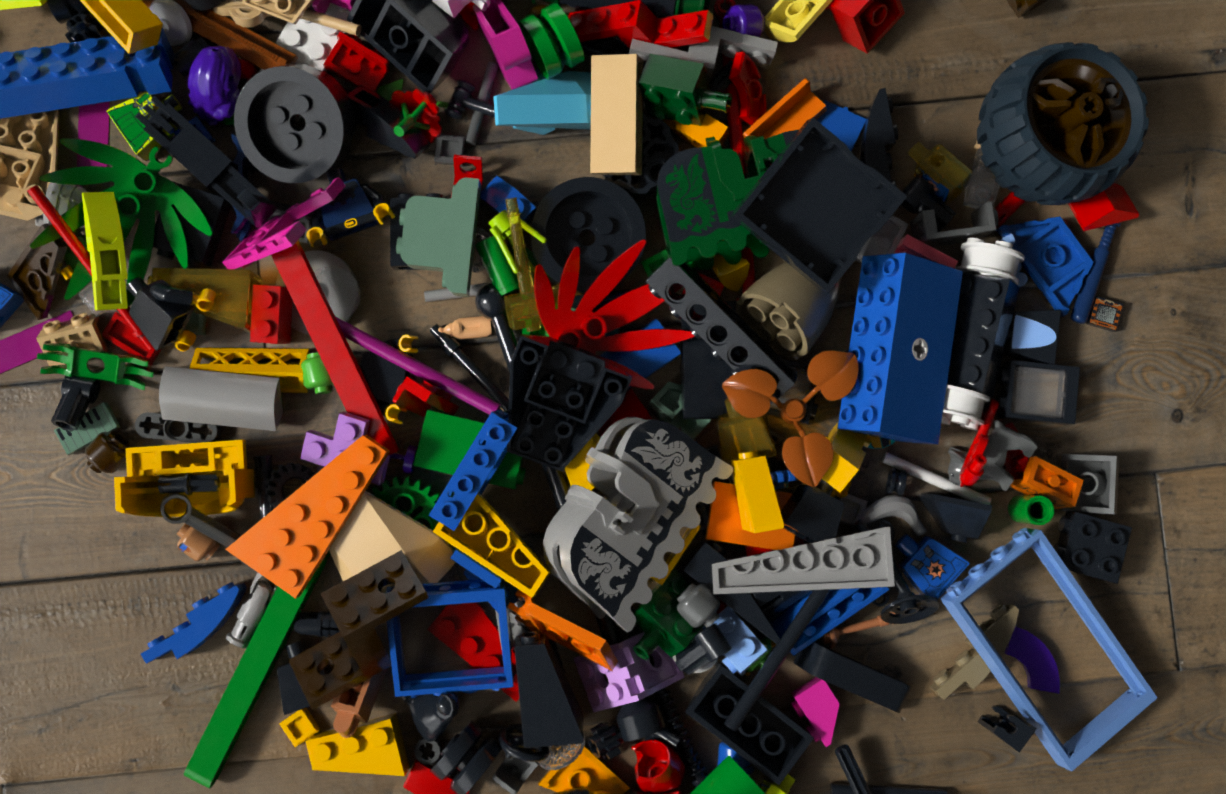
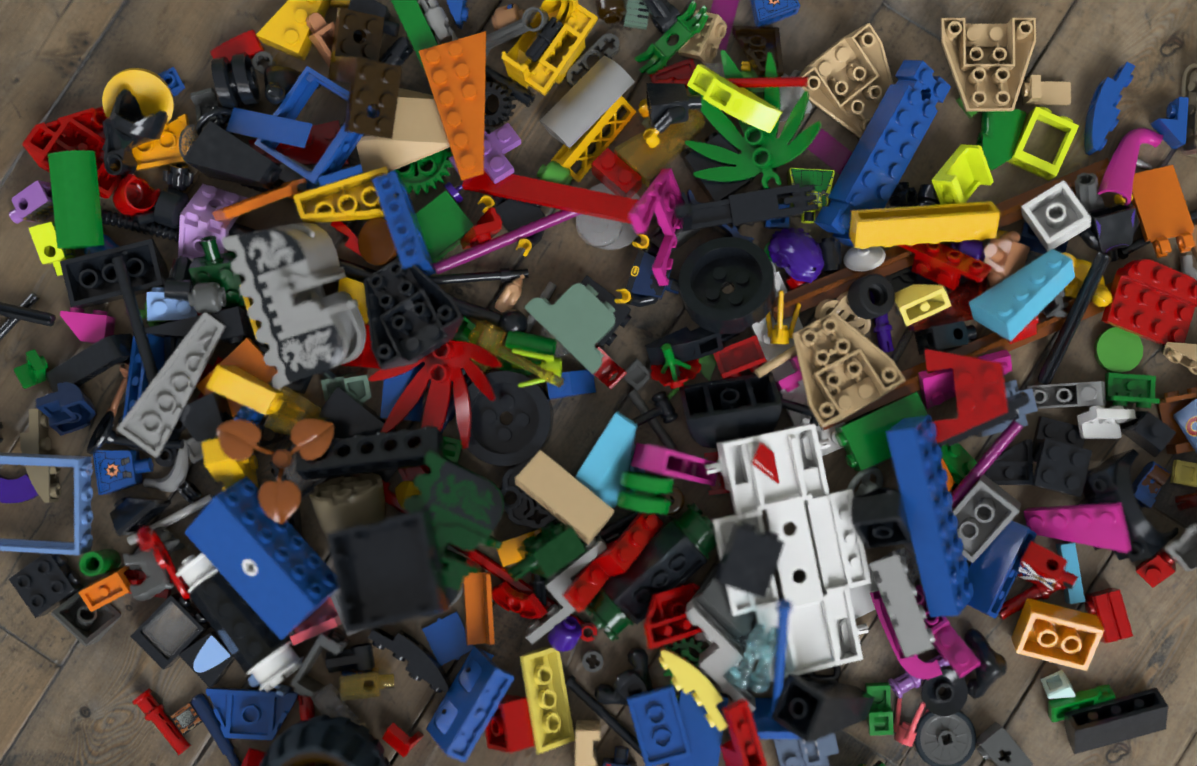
camera: 135 degrees right, 0 degrees up
(301, 38) = (780, 333): none -> yellow plant
(485, 684) = (269, 127): none -> blue sticker
(512, 486) = (377, 242): none -> reddish brown tile
(534, 514) = (352, 242): none -> red slope
(879, 43) = (469, 704): none -> blue window
(904, 728) = (33, 371): none -> green bracket
(913, 661) = (67, 409): none -> dark blue brick
(963, 98) = (400, 740): none -> red tile
(1125, 345) = (154, 712): none -> red pin

